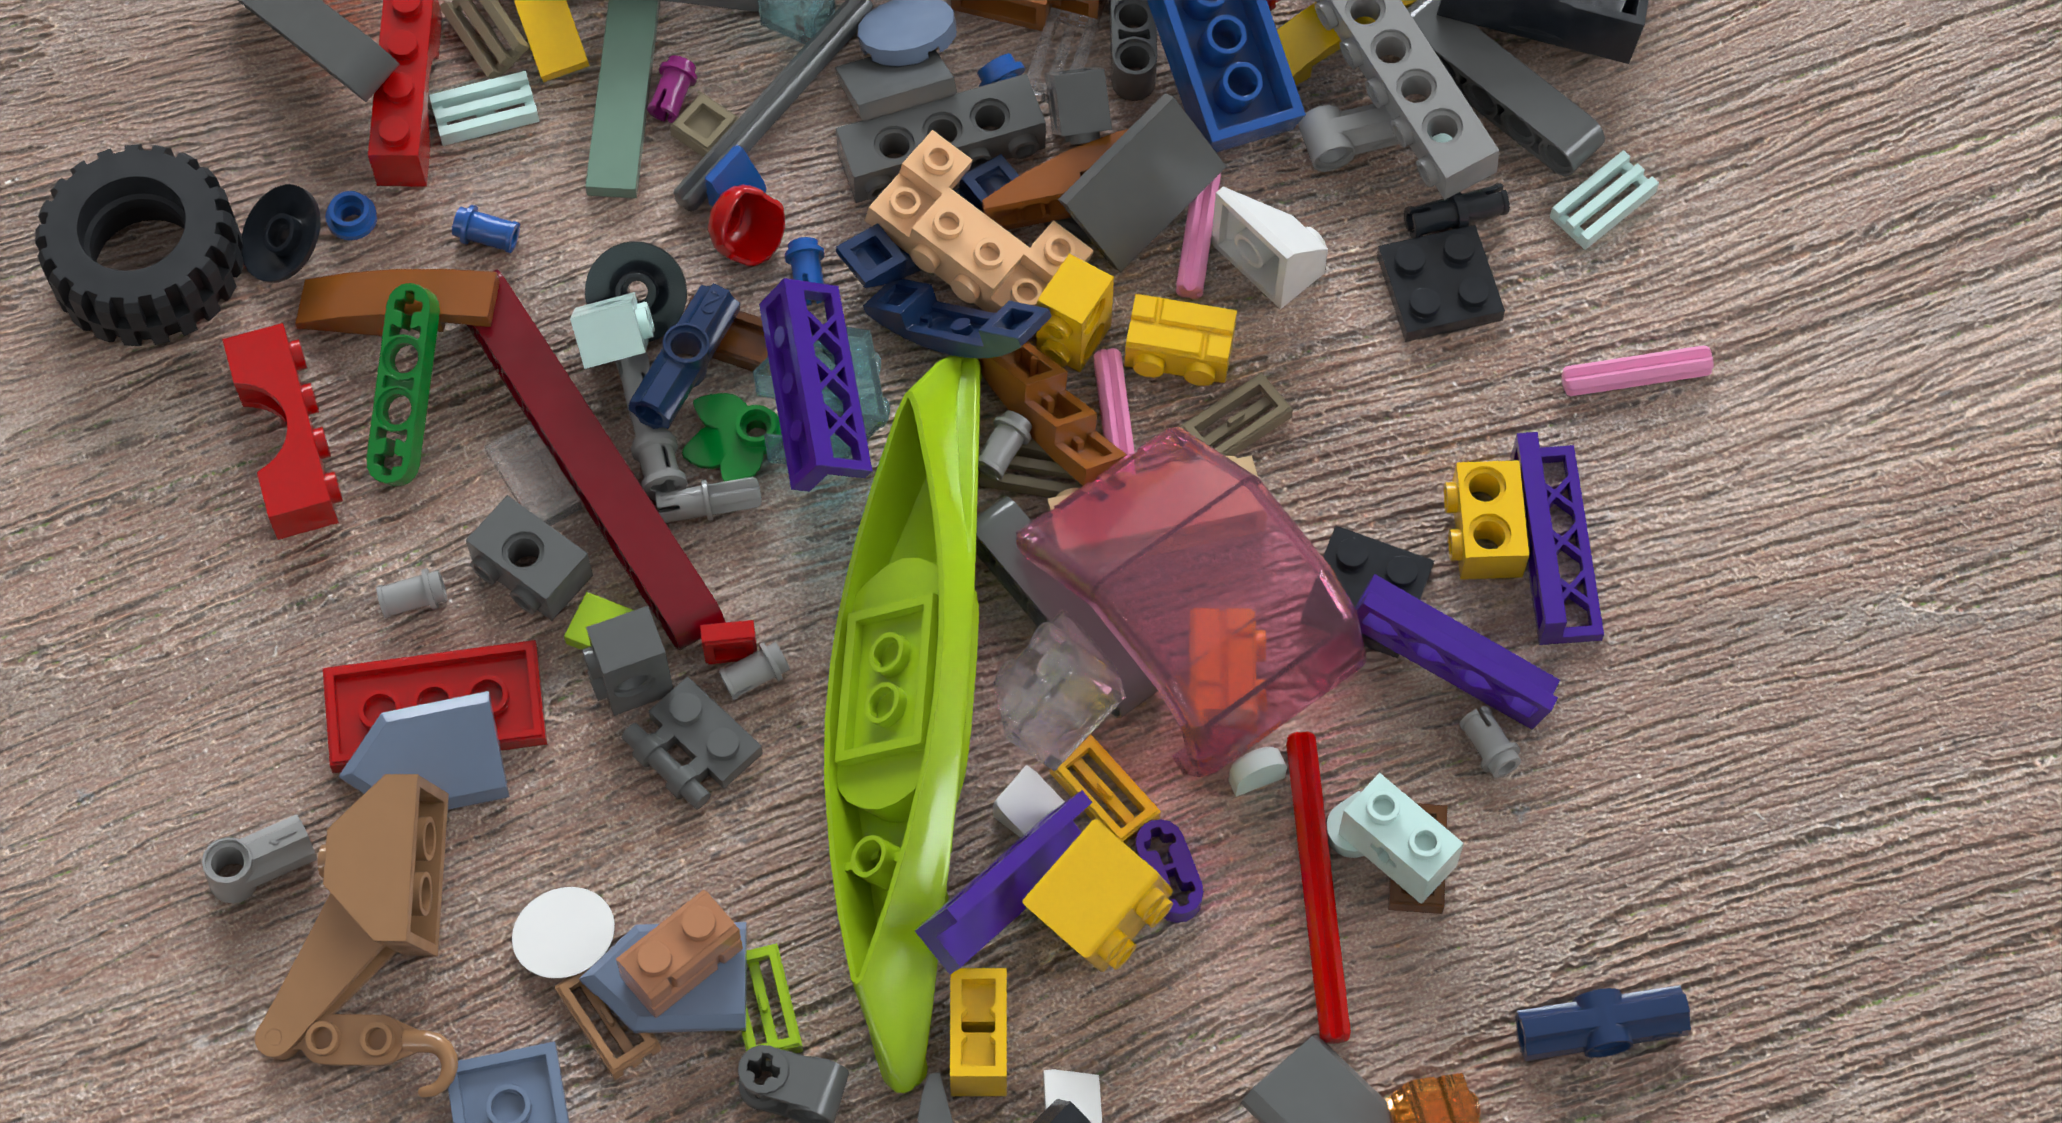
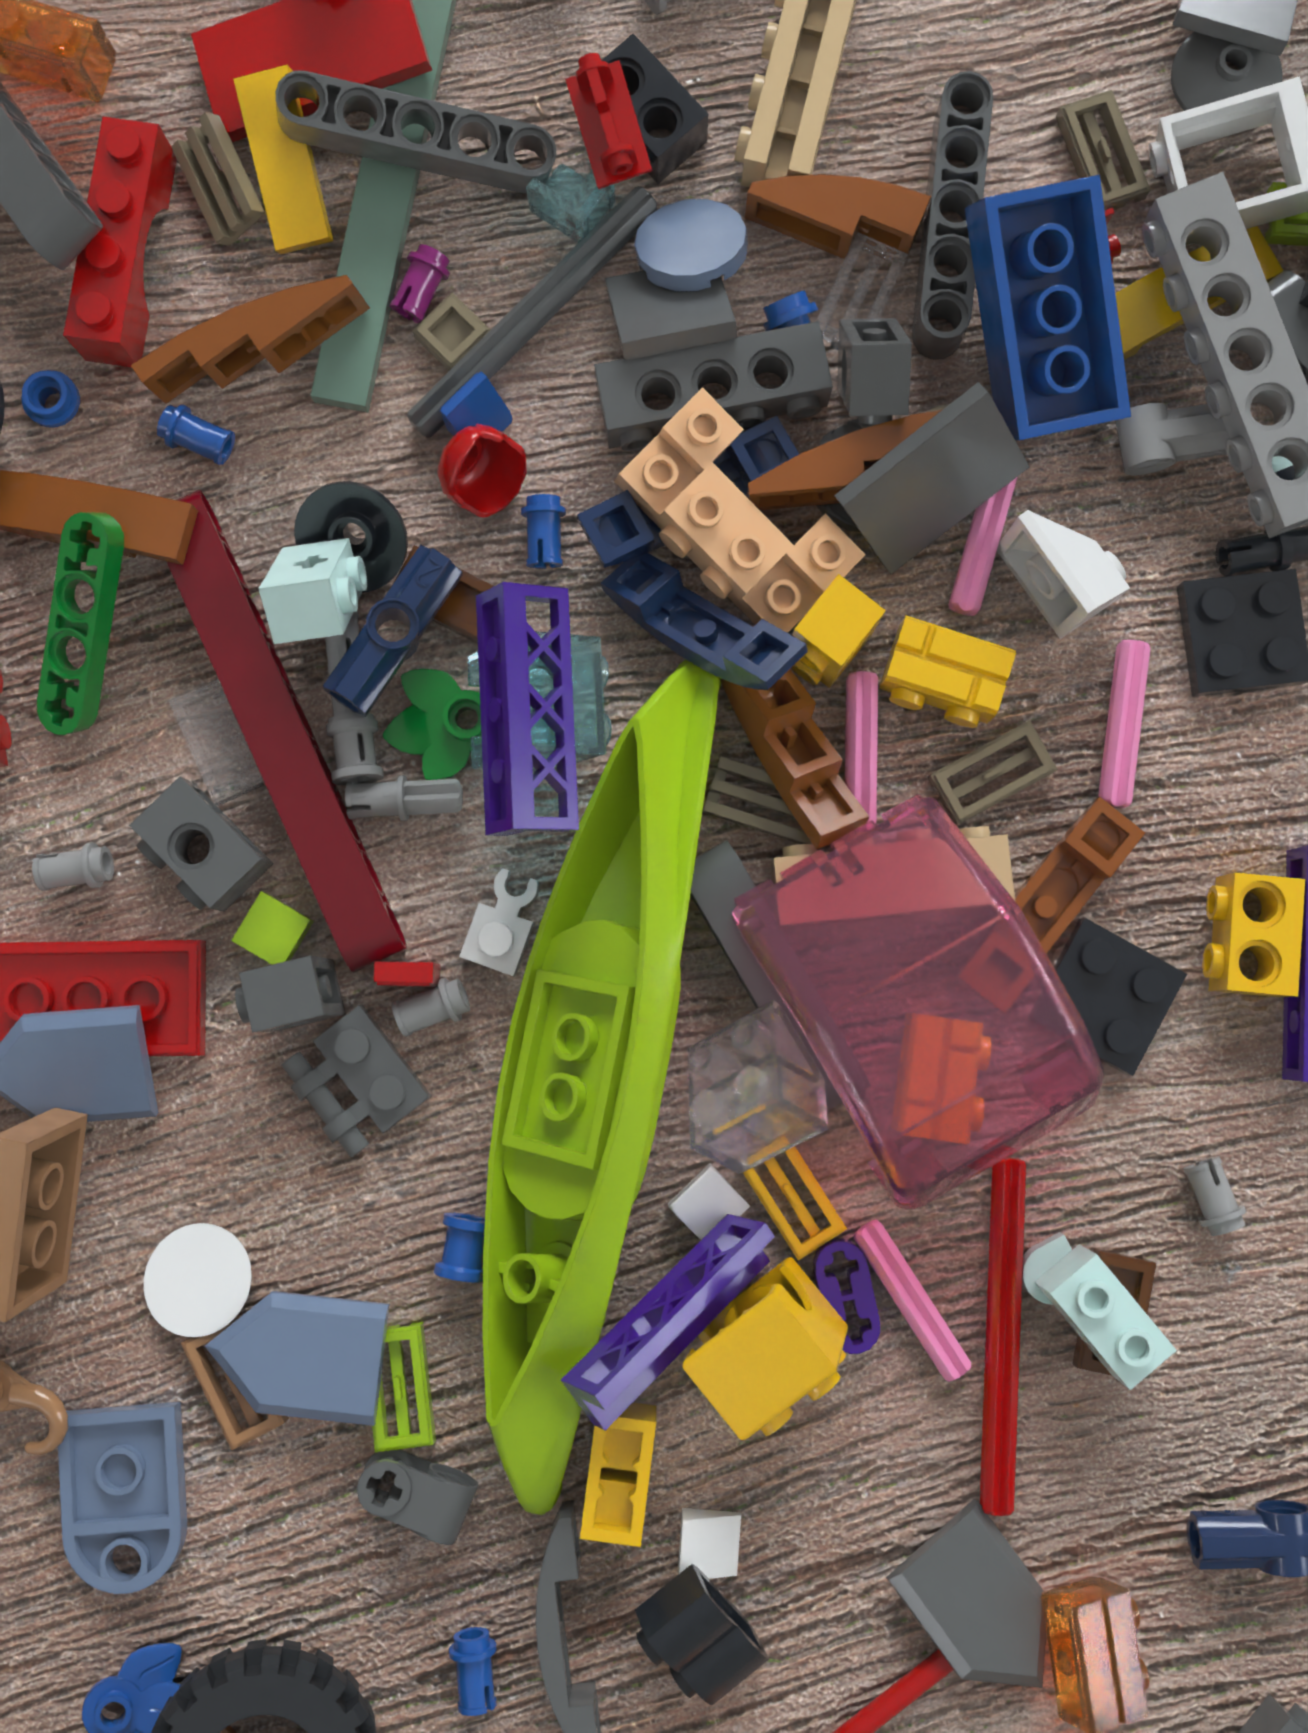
camera: 10 degrees right, 20 degrees up
(483, 100) = (204, 260): light aqua tile -> none
(544, 134) = (269, 328): none -> dark orange slope
(679, 953) = (305, 1360): nougat brick -> none
(809, 604) = (499, 933): none -> white plate
(809, 868) = (462, 1248): none -> blue bush
(1001, 447) = (734, 780): light grey pin -> none
(1231, 867) = (912, 1300): none -> bright pink axle
(1256, 770) = (963, 1198): light aqua tile -> none
(1327, 480) = (1076, 869): none -> dark orange slope
(1346, 367) = (1124, 723): none -> bright pink axle
(1456, 653) = (1196, 1093): dark purple fence -> none

